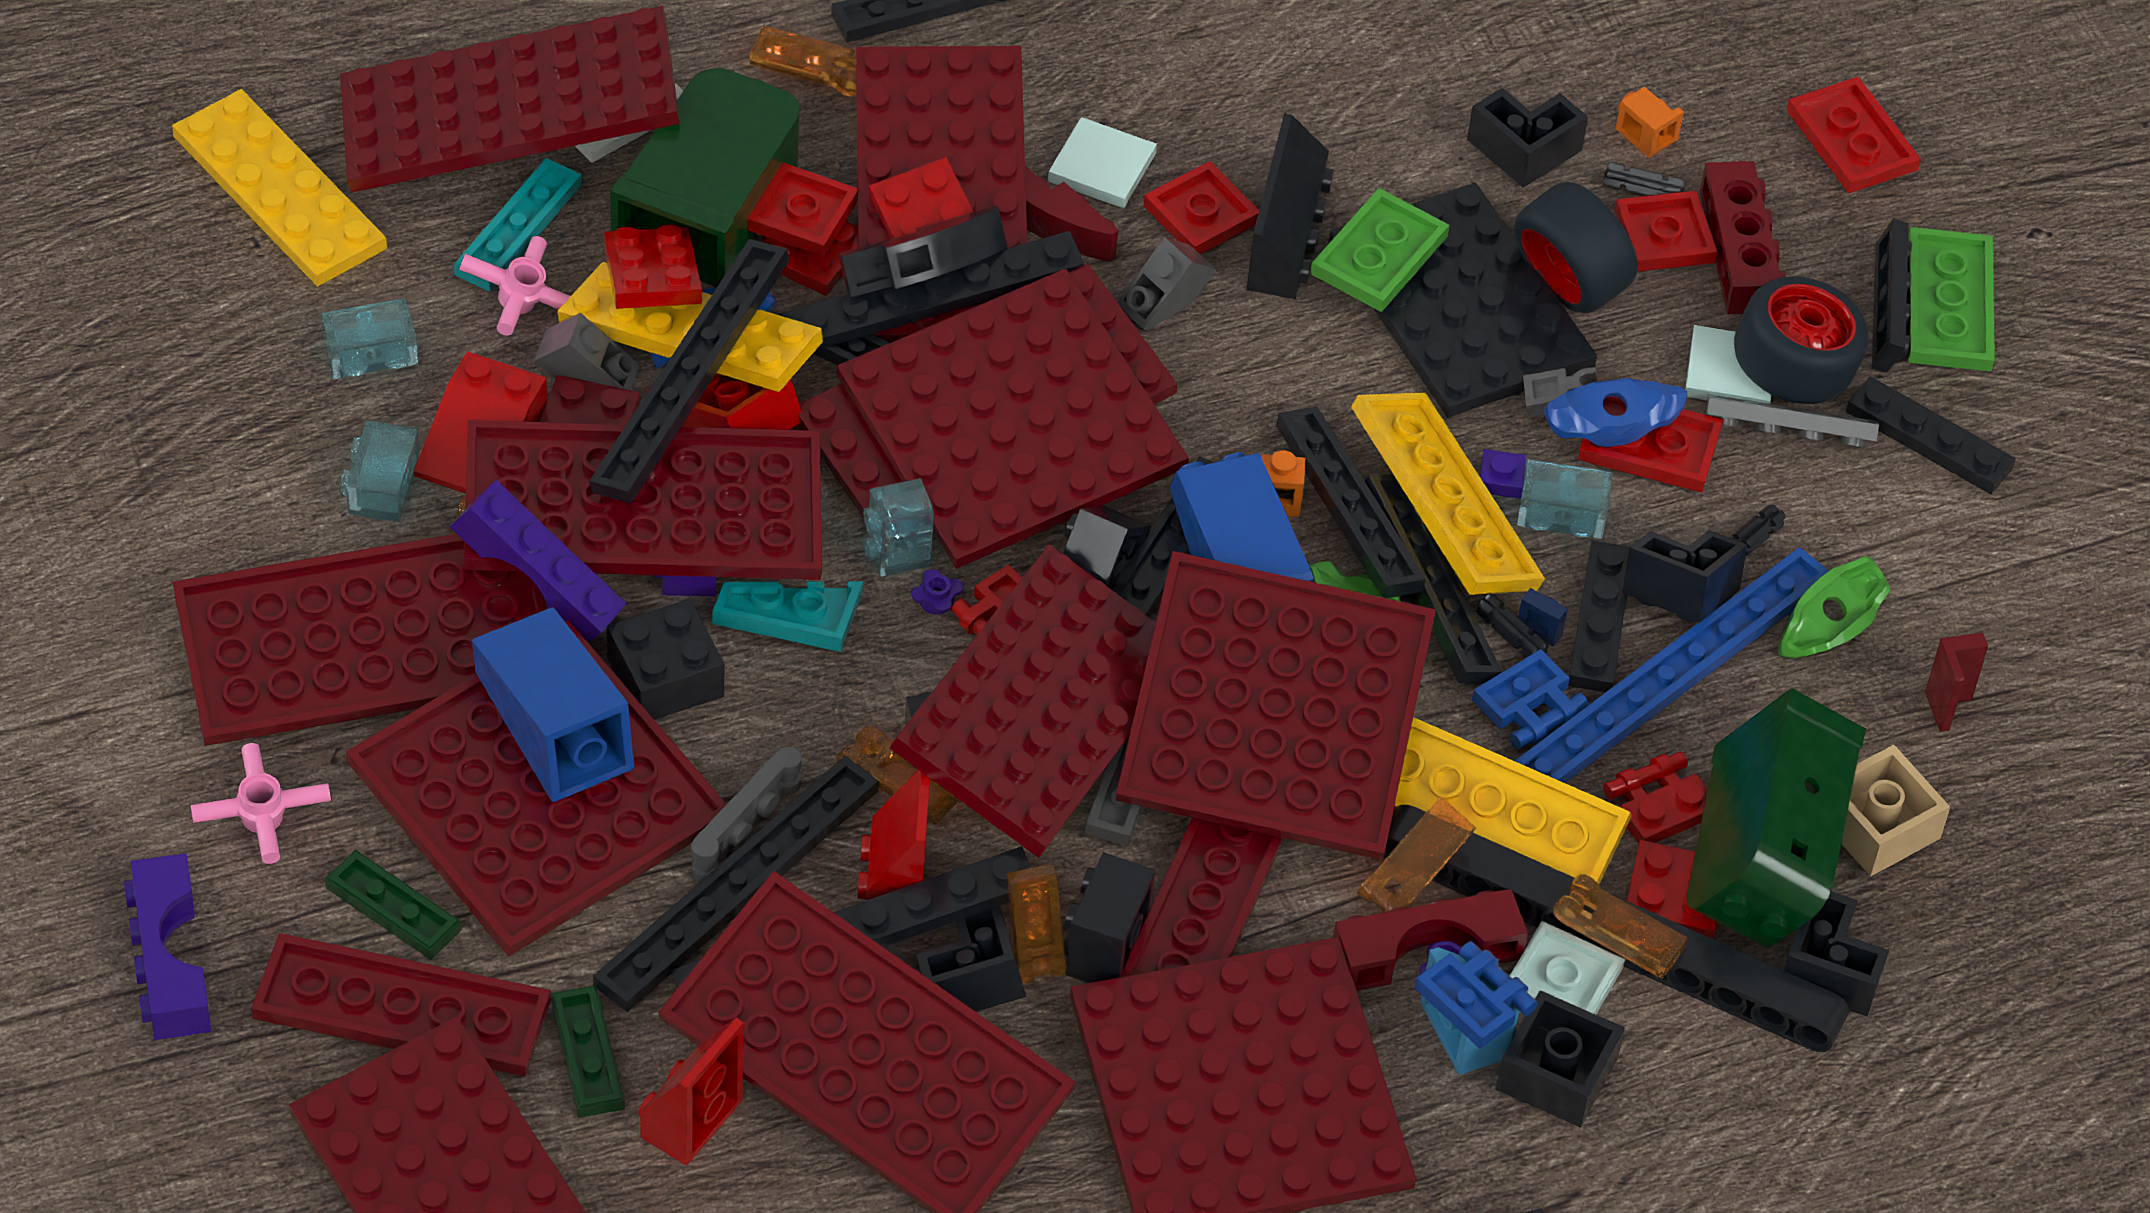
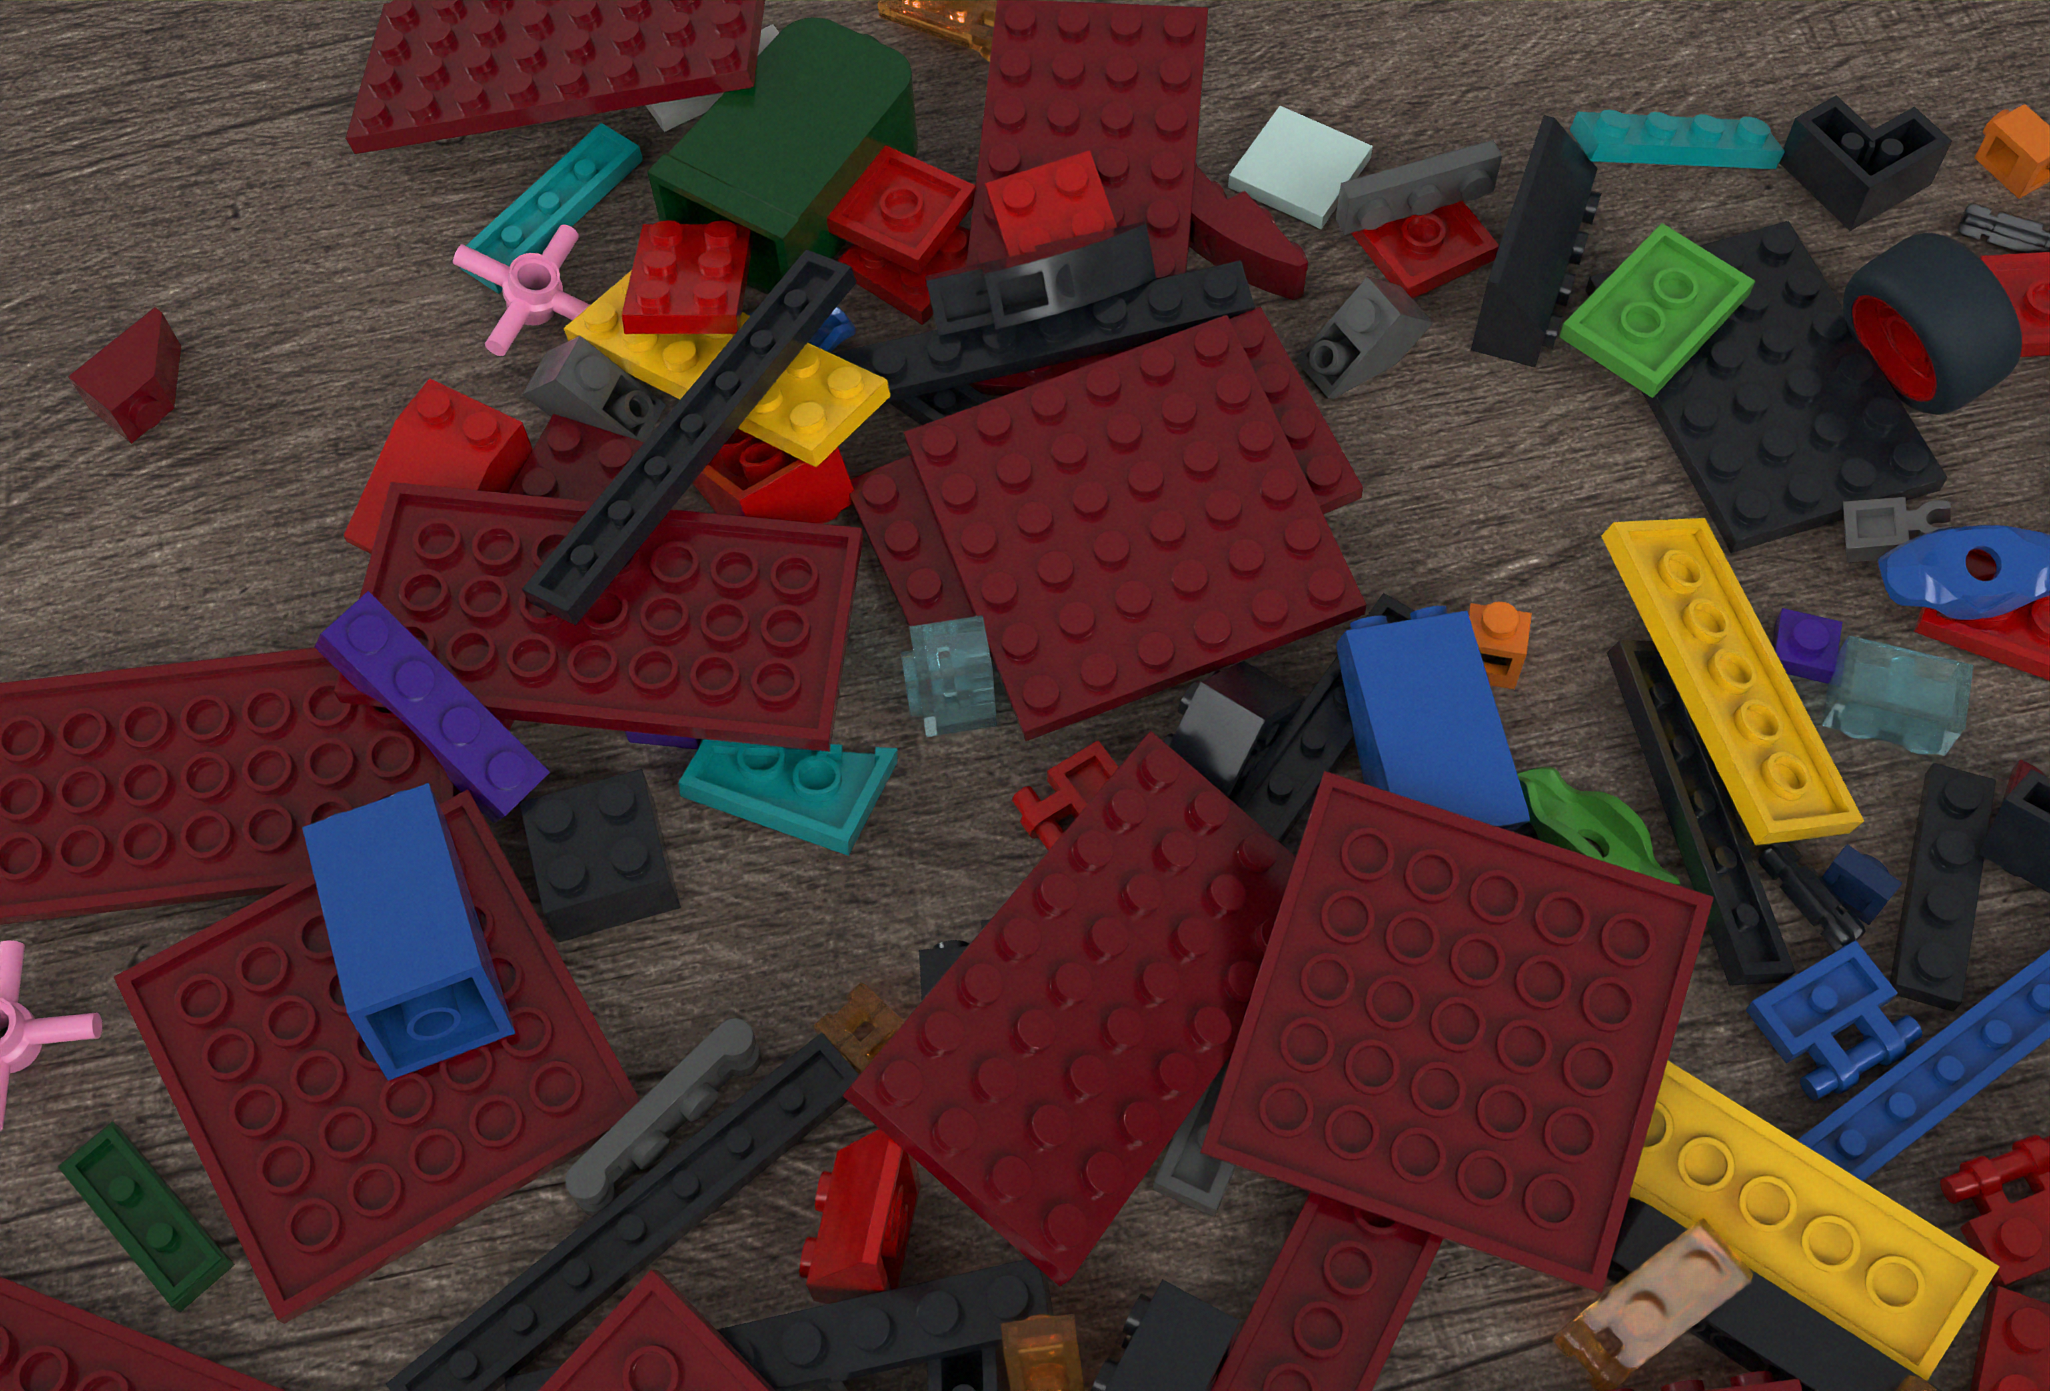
camera: 15 degrees right, 10 degrees up
(218, 370) = (133, 377): none -> dark red slope
(279, 187) = (279, 144): yellow plate -> none
(369, 338) = (326, 349): clear light blue brick -> none
(381, 470) = (294, 536): clear light blue brick -> none
(936, 601) = (1000, 787): dark purple plate -> none
(1195, 172) = (1418, 187): none -> dark grey plate
(1351, 503) = (1593, 687): black plate -> none
(1387, 127) = (1676, 140): none -> teal plate

